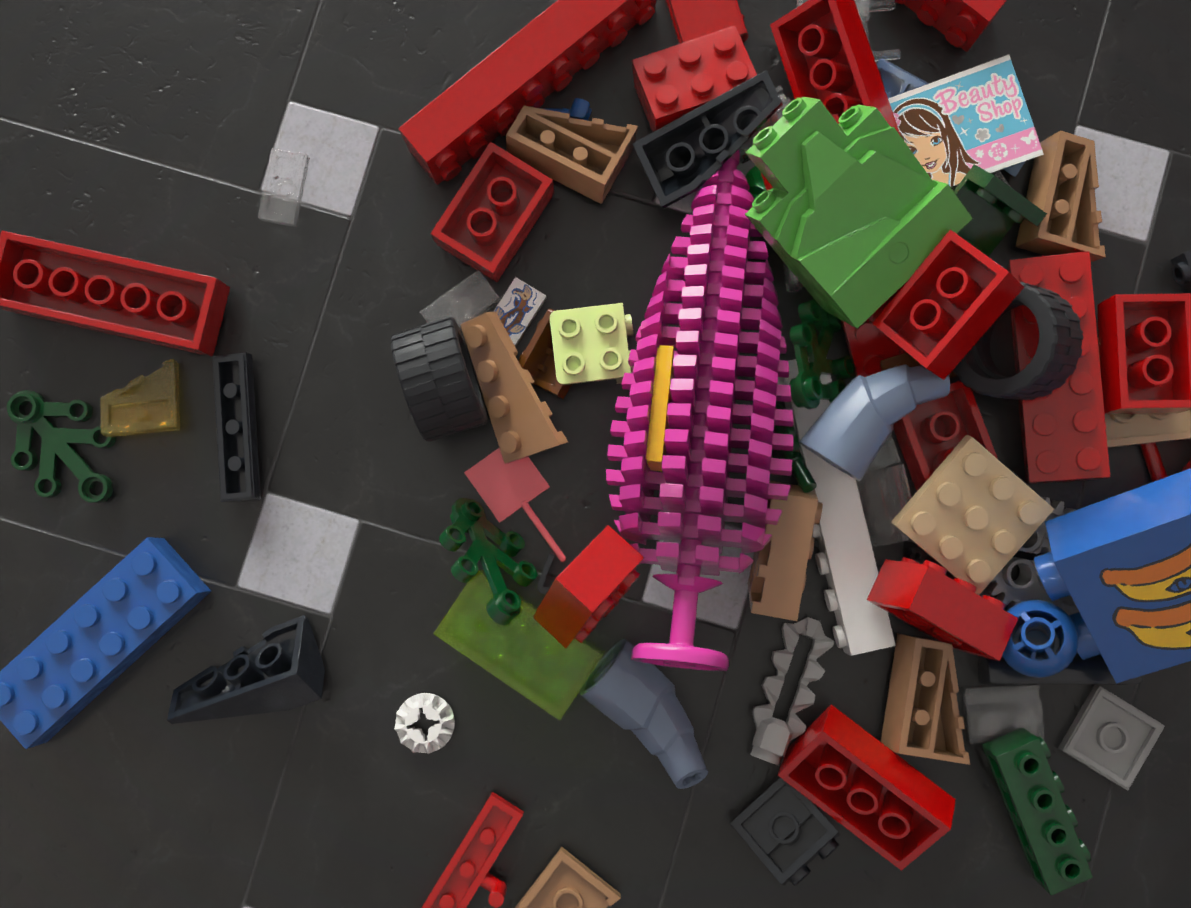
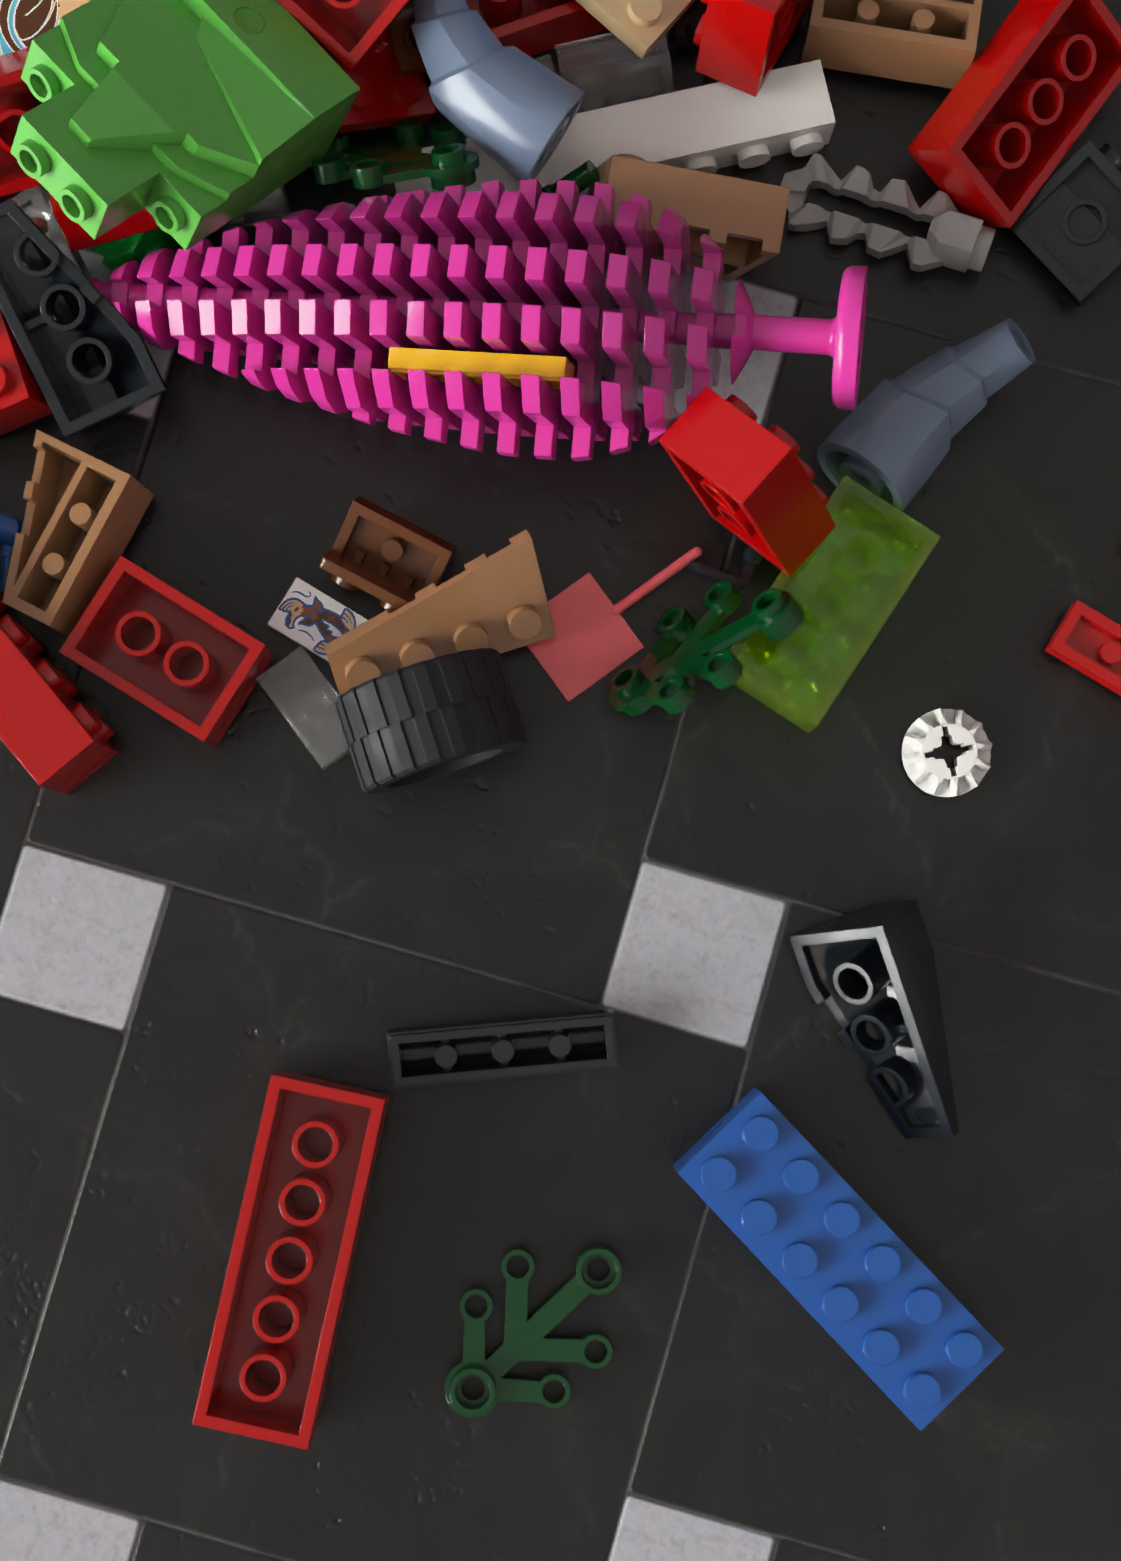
camera: 100 degrees left, 0 degrees up
(144, 404) = (468, 1198): clear yellow wing -> none
(283, 187) = (121, 987): clear plate -> none
(591, 343) = (375, 499): yellowish green bracket -> none

